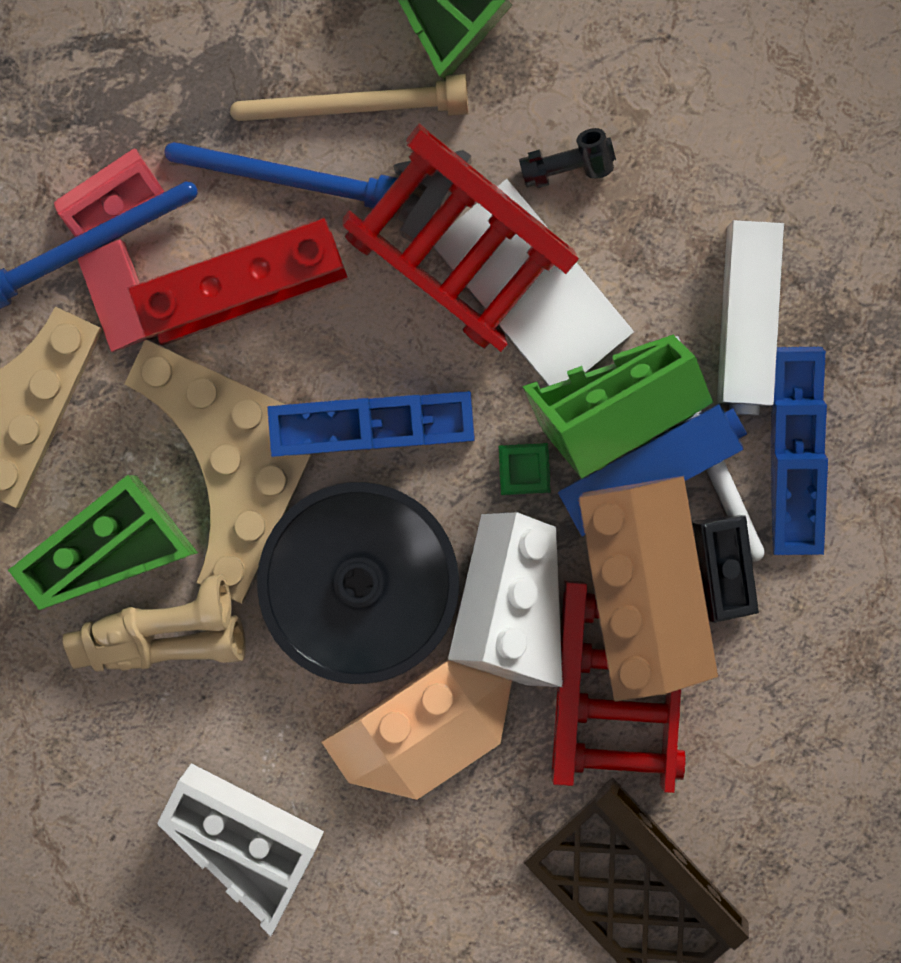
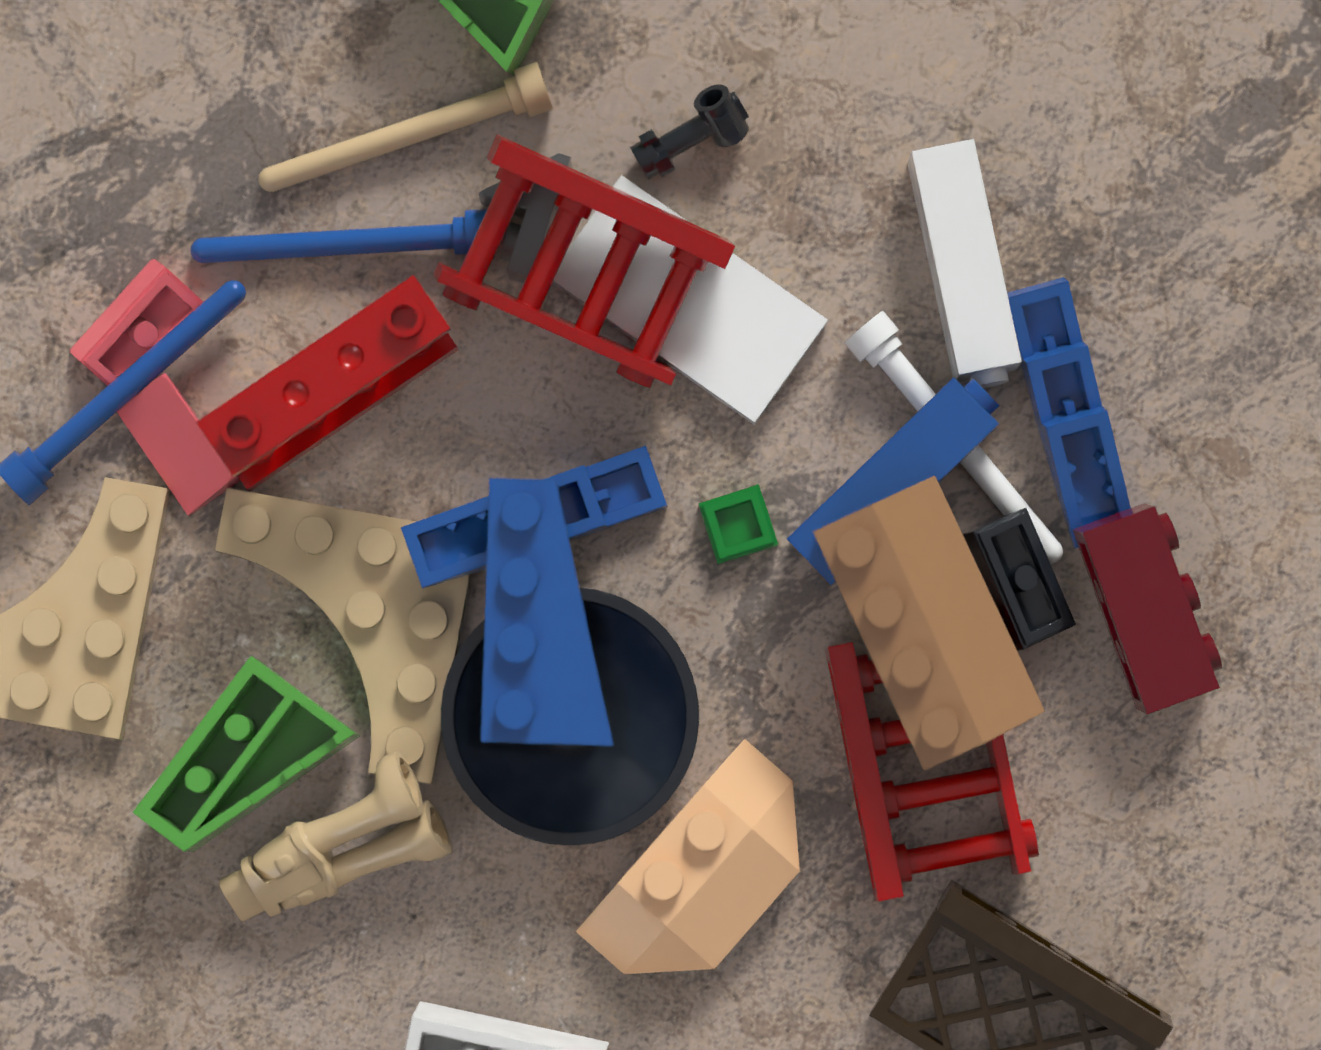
camera: 15 degrees left, 5 degrees down
(346, 523) = (537, 637): none -> blue wedge
(511, 602) = (767, 691): white wedge -> none
(620, 405) = (833, 411): bright green wedge -> none
(817, 616) = (1148, 607): none -> dark red brick

